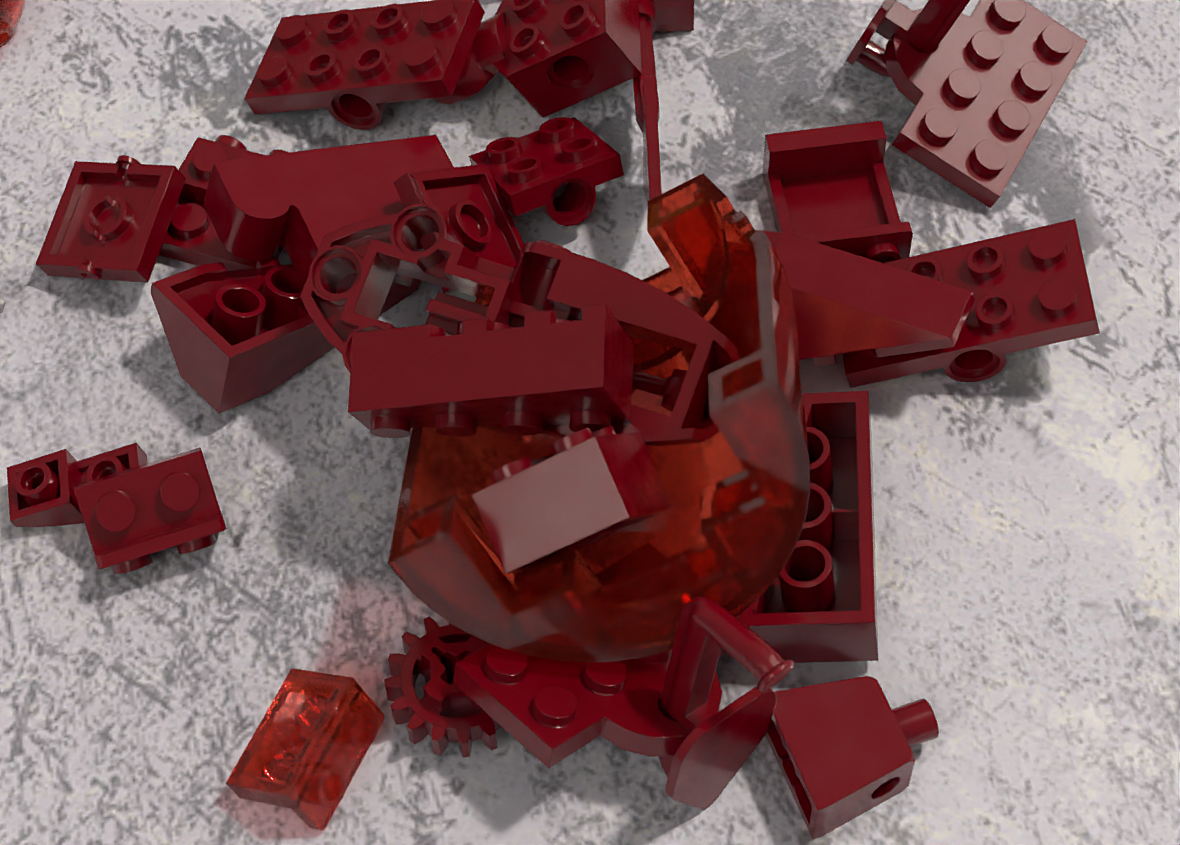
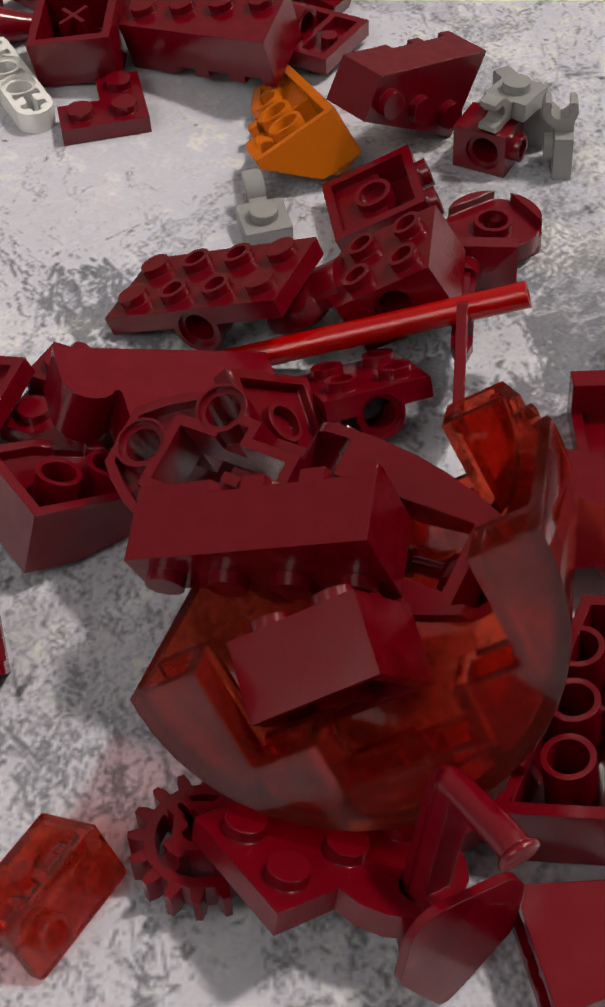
camera: 10 degrees right, 10 degrees down
(559, 95) = (391, 324): none -> red piece

